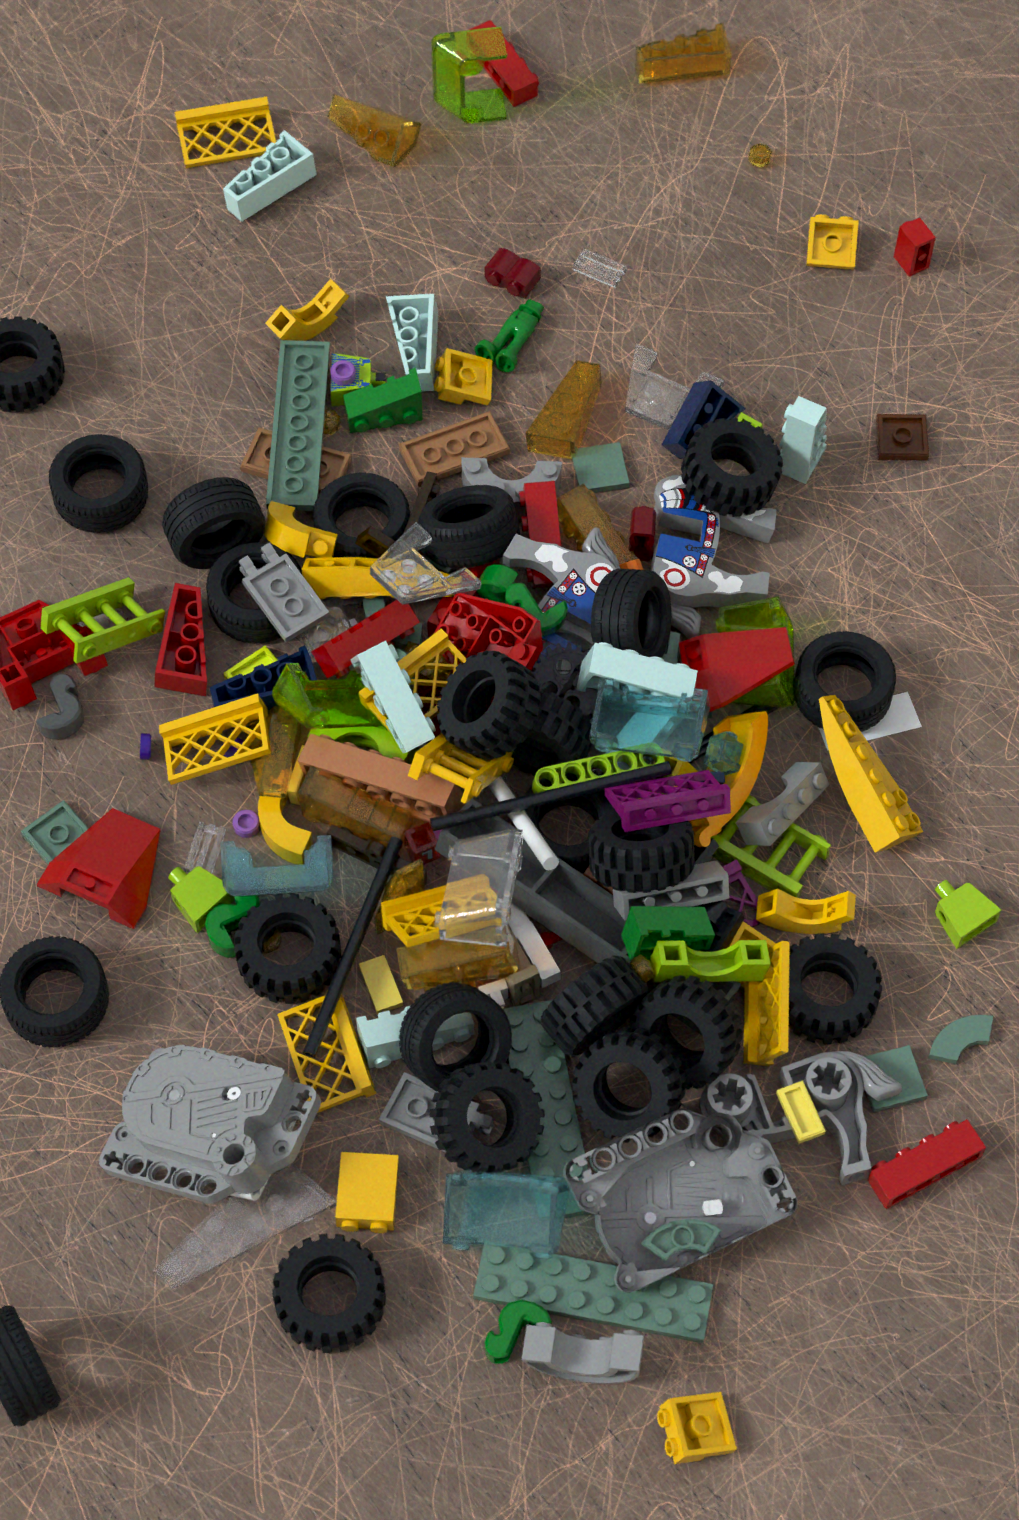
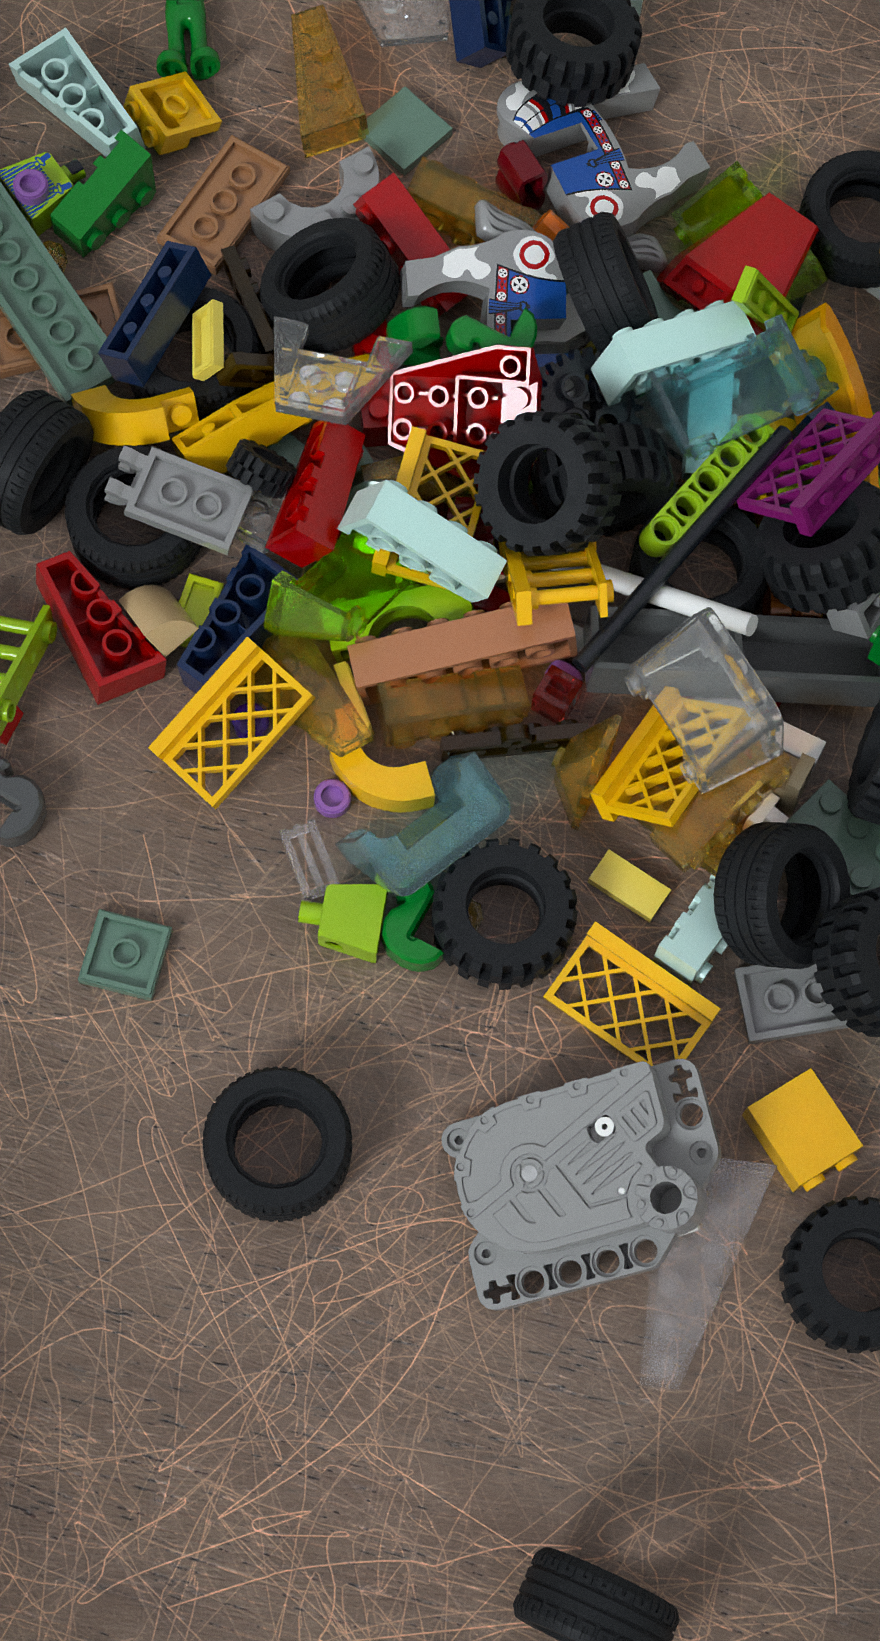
camera: 40 degrees left, 10 degrees up
(108, 866) = (216, 954): red wedge -> none
(145, 746) = (146, 782): dark purple tile -> none
(222, 656) = (159, 617): none -> tan brick
(342, 604) = (261, 468): none -> black tyre
(346, 479) = (155, 313): none -> dark blue brick
(352, 948) = (581, 865): black piece -> none
(367, 513) = (207, 340): none -> light yellow tile
(720, 690) = (762, 300): none -> lime tile

